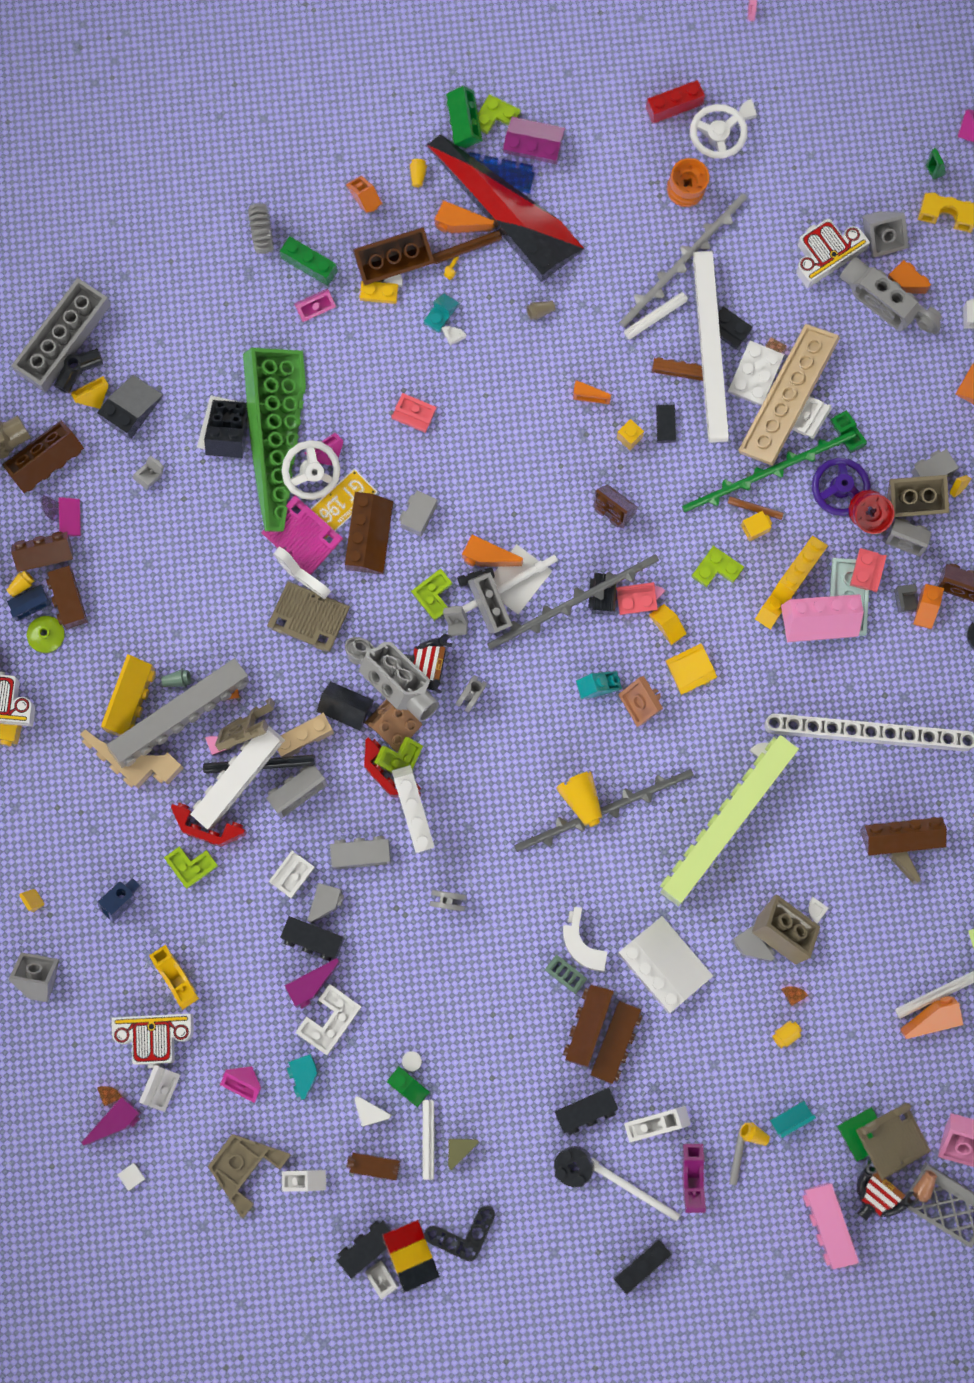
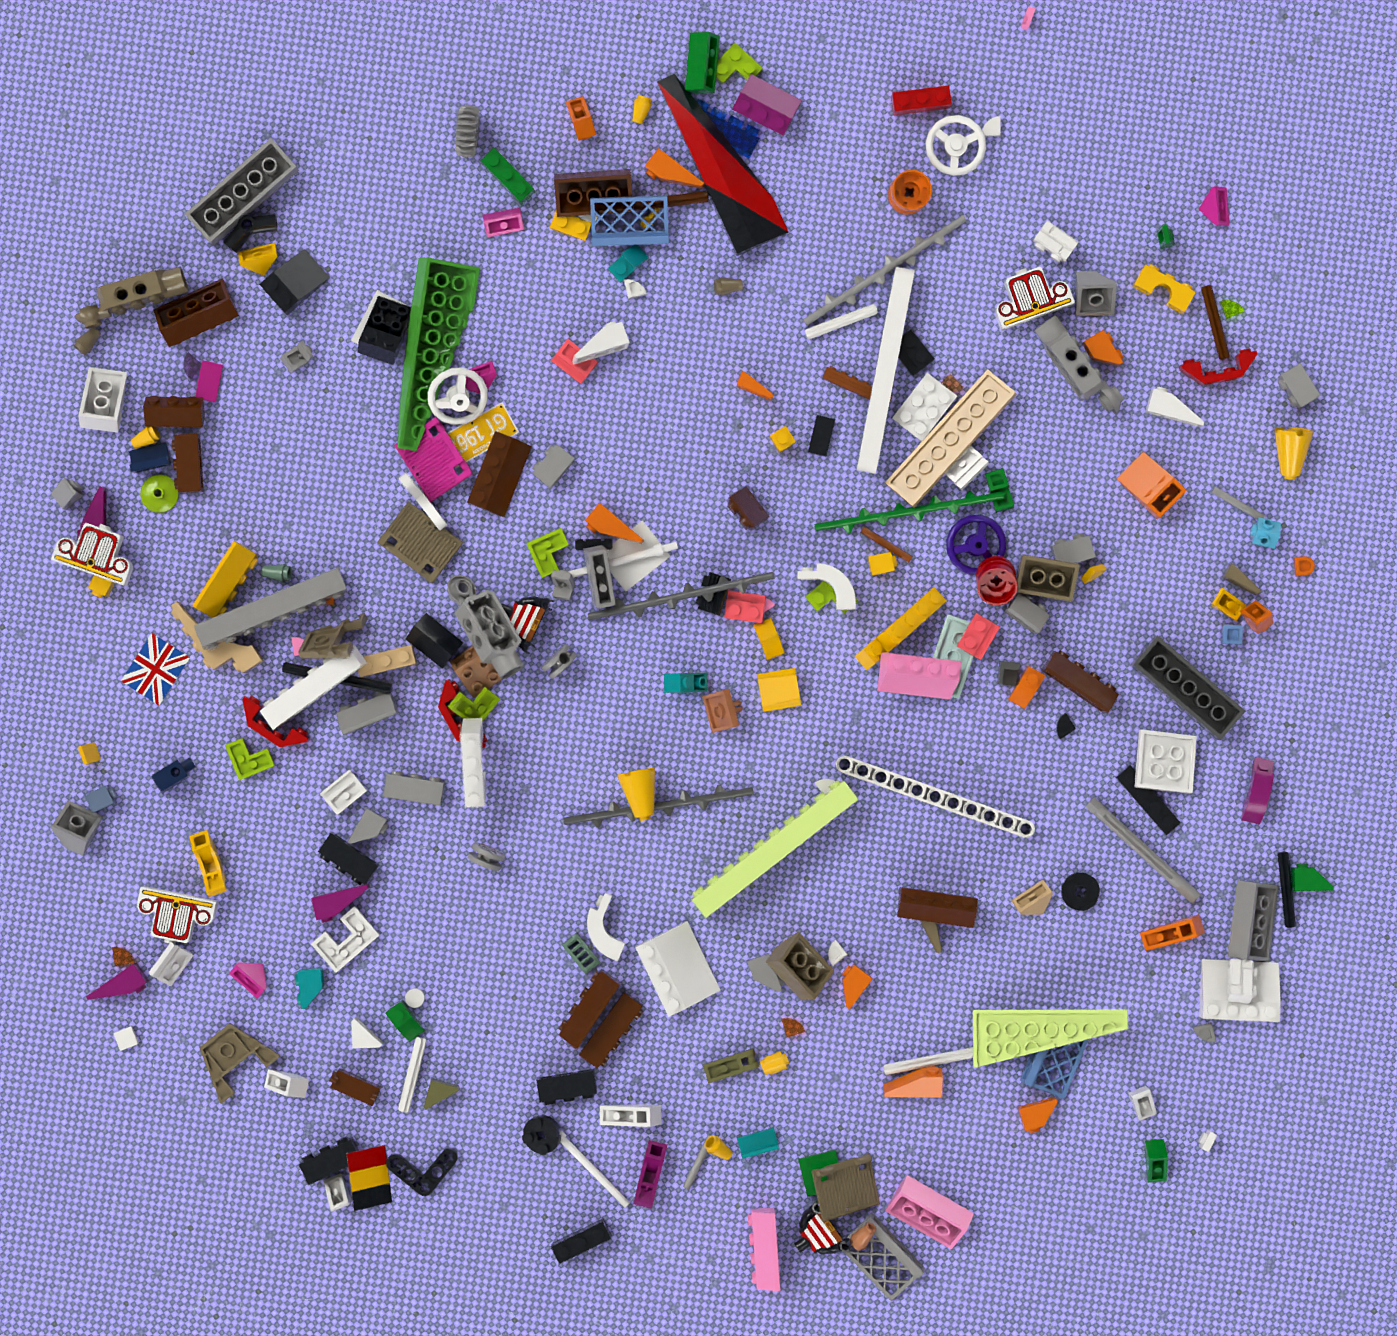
camera: 10 degrees right, 10 degrees up
(53, 941) = (101, 798): none -> sand blue brick
(79, 802) = (155, 669): none -> sticker
(439, 386) = (607, 341): none -> white slope
(441, 285) = (629, 237): none -> medium blue fence
(719, 550) = (839, 582): none -> white arch
(743, 1049) = (730, 1066): none -> olive plate
(834, 195) = (1055, 242): none -> white brick
(843, 935) = (854, 983): none -> orange slope

